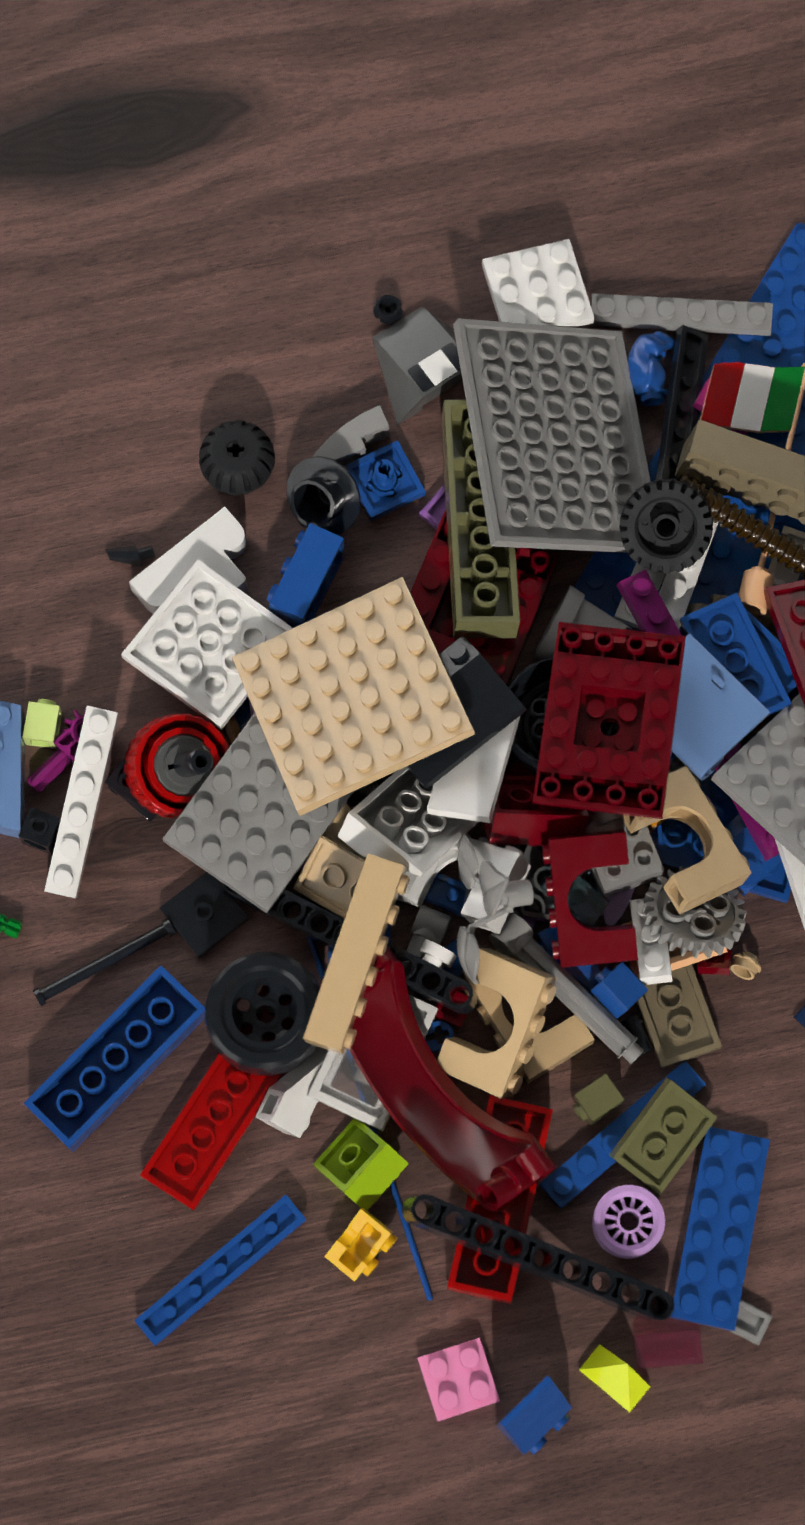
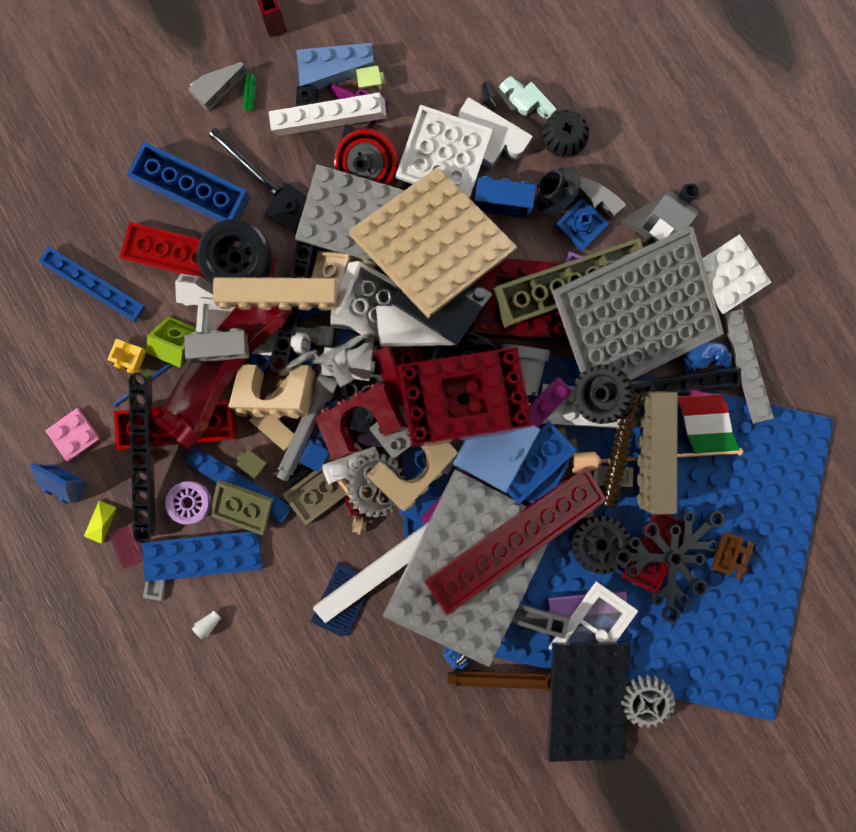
camera: 70 degrees right, 10 degrees up
(159, 499) = (526, 98): none -> light aqua plate
(400, 1082) = (216, 345): none -> light grey brick

